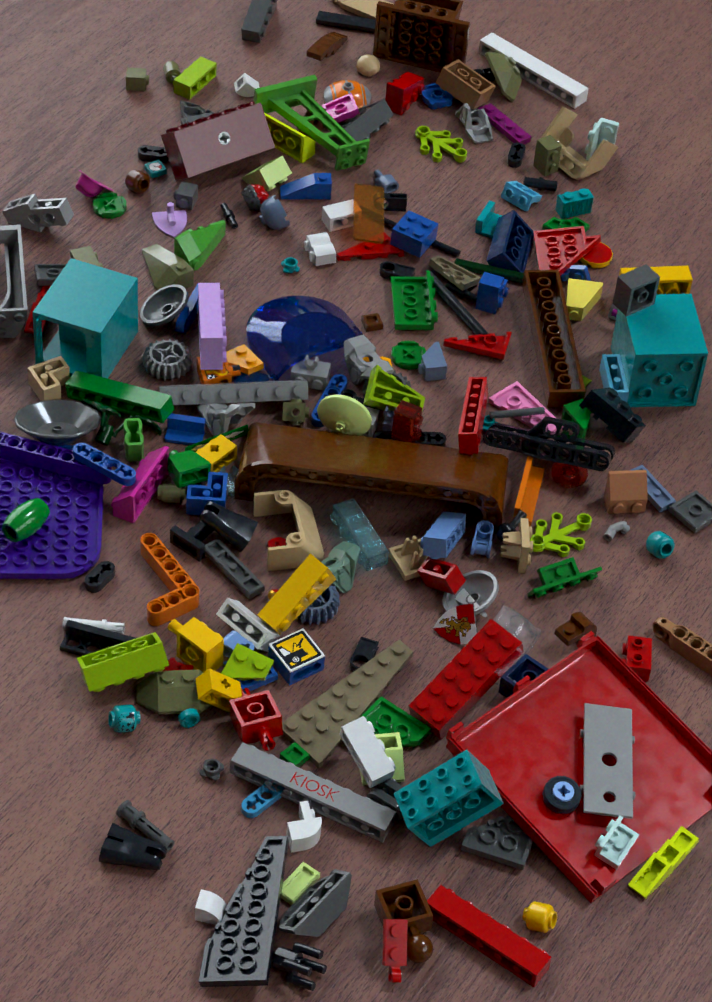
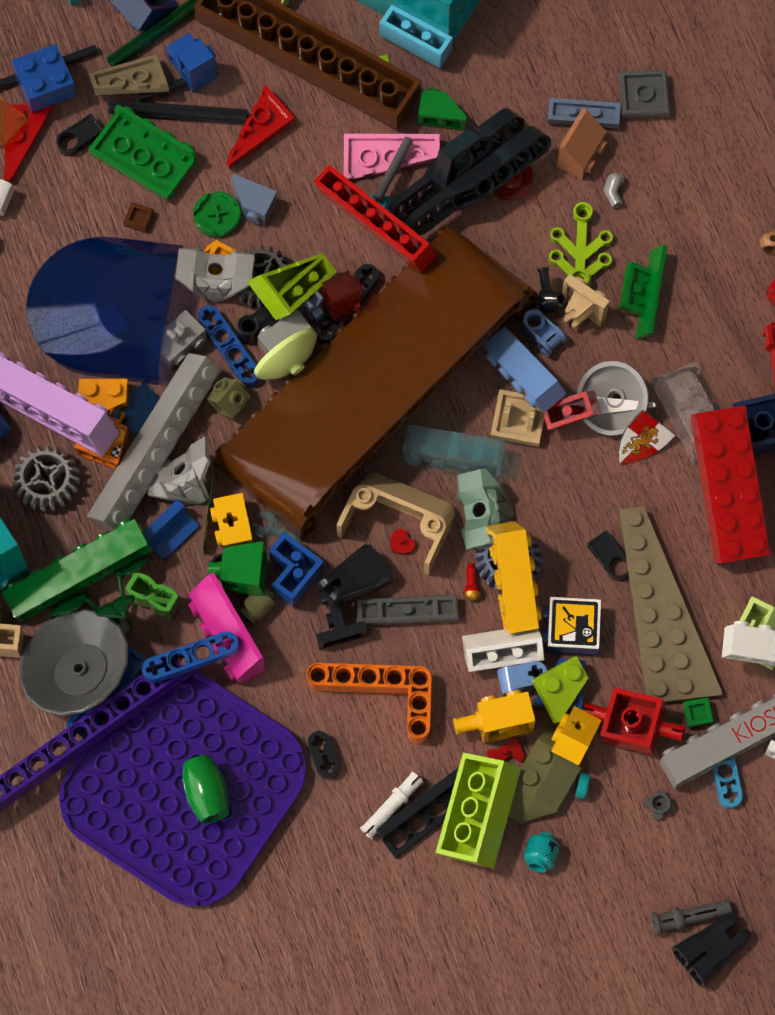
camera: 50 degrees left, 25 degrees up
(391, 719) = (719, 598): green plate -> none
(529, 490) = (506, 239): orange fence -> none
(575, 629) = (726, 330): reddish brown brick -> none
(614, 412) = (469, 74): black wedge -> none
(660, 544) = (667, 163): teal head -> none

